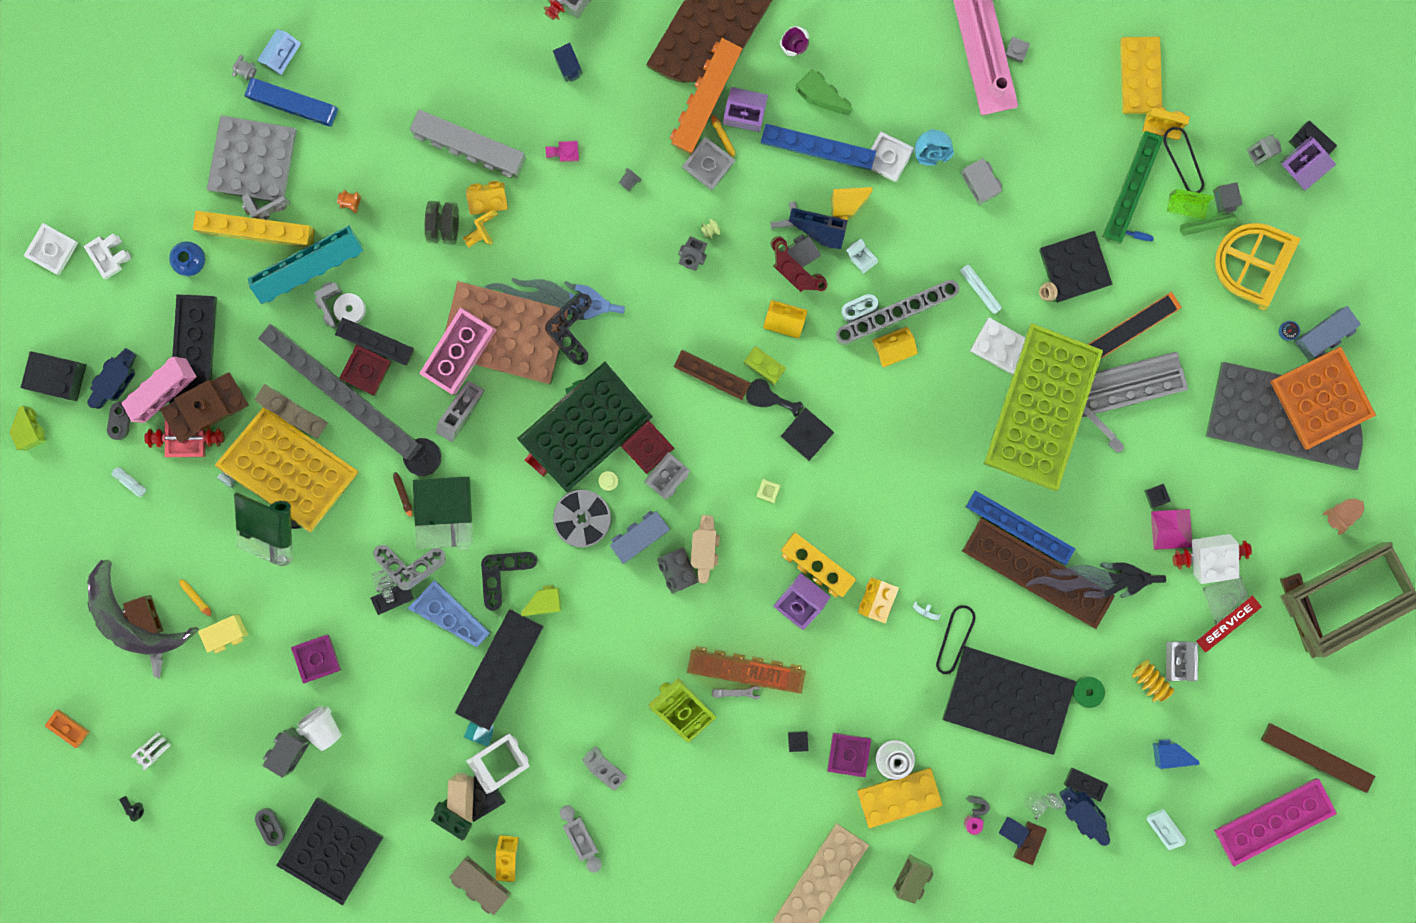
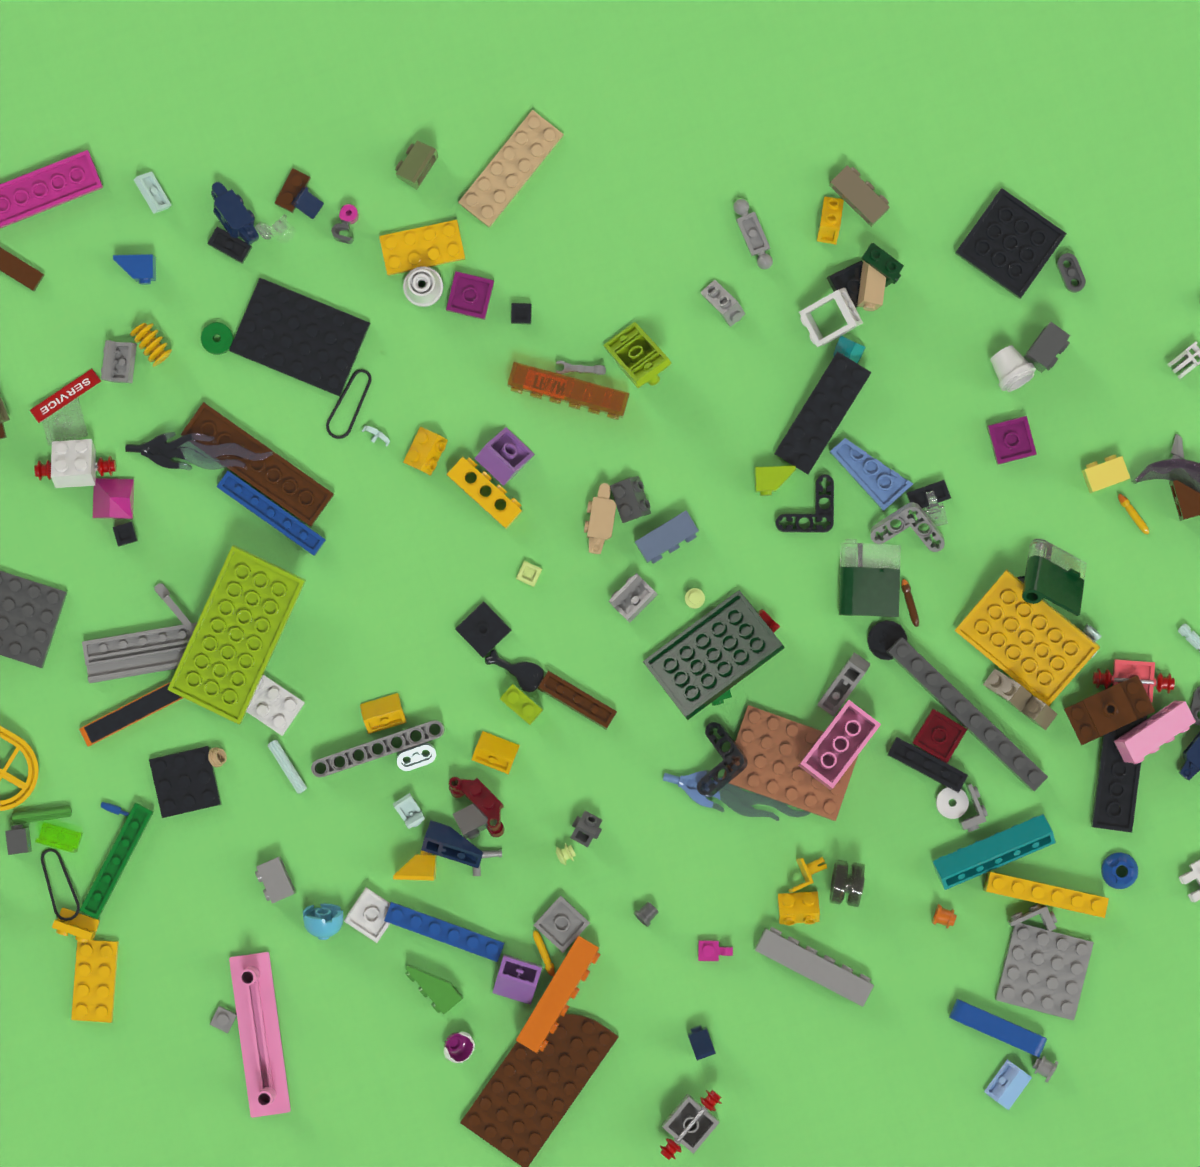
camera: 170 degrees left, 0 degrees up
(580, 503) = (741, 560): light grey piece -> none
(647, 447) = (651, 630): dark red plate -> none

